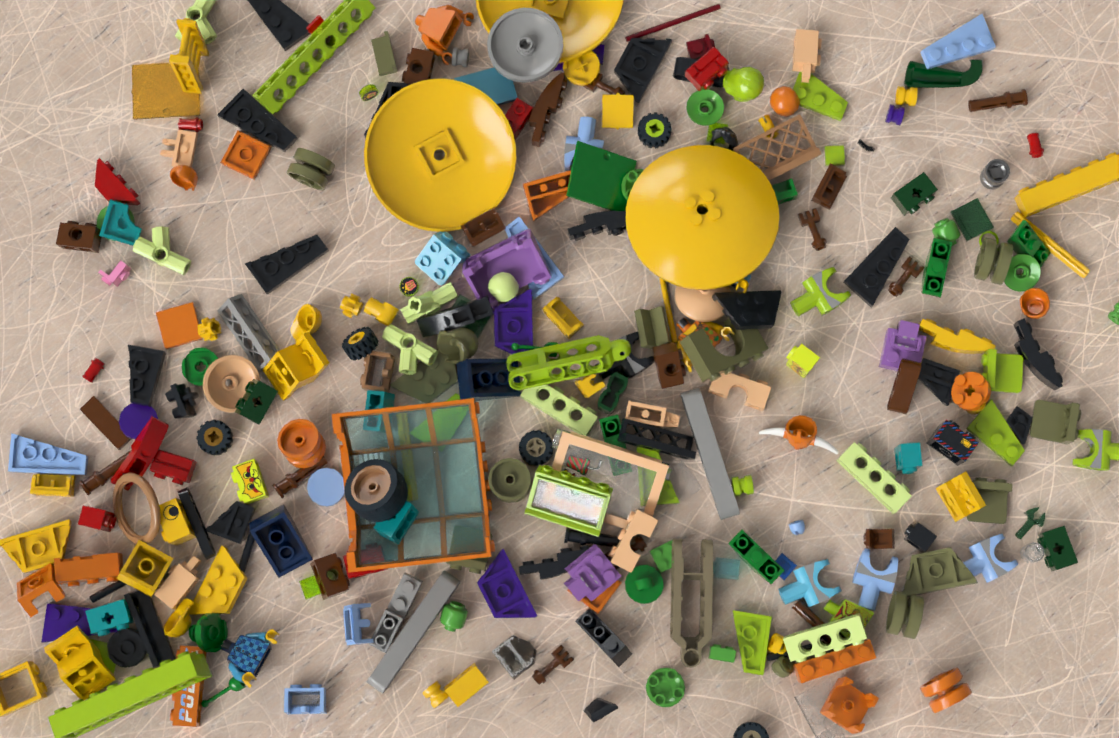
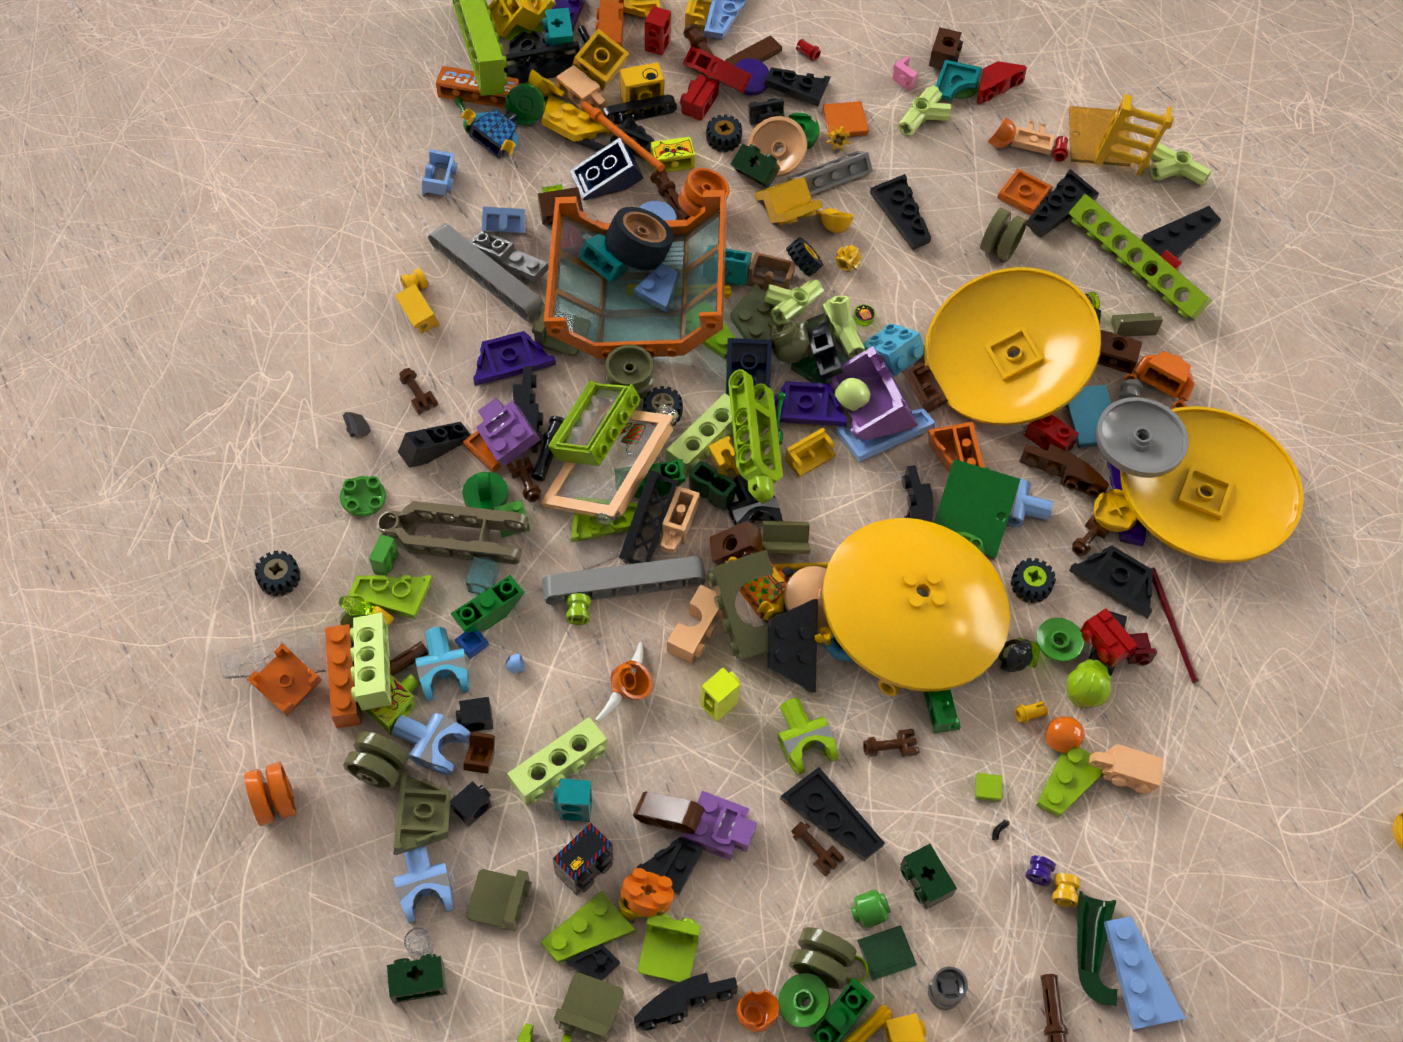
camera: 90 degrees right, 20 degrees down
(153, 503) = (659, 56): medium nougat wedge -> none
(214, 560) = (598, 116): none -> orange bar
(383, 312) = (839, 283): yellow piece -> none
(419, 467) = (658, 287): none -> medium blue wing
(453, 616) = (493, 307): bright green head -> none
(516, 655) = (436, 357): clear smoke slope -> none
(617, 111) = (1059, 543): yellow piece -> none
(638, 524) = (523, 467): light nougat arch -> none
(776, 663) = (355, 605): none -> clear neon green tile
(788, 163) = (980, 726): medium nougat fence -> none
(829, 186) = (946, 771): reddish brown hinge -> none
(847, 549) = (475, 714): none -> black brick
(936, 267) = (821, 883): green slope -> none
(960, 496) = (511, 859): yellow slope -> none
(962, 342) = (718, 902): yellow slope -> none
(1030, 522) = (460, 953): clear green bar -> none

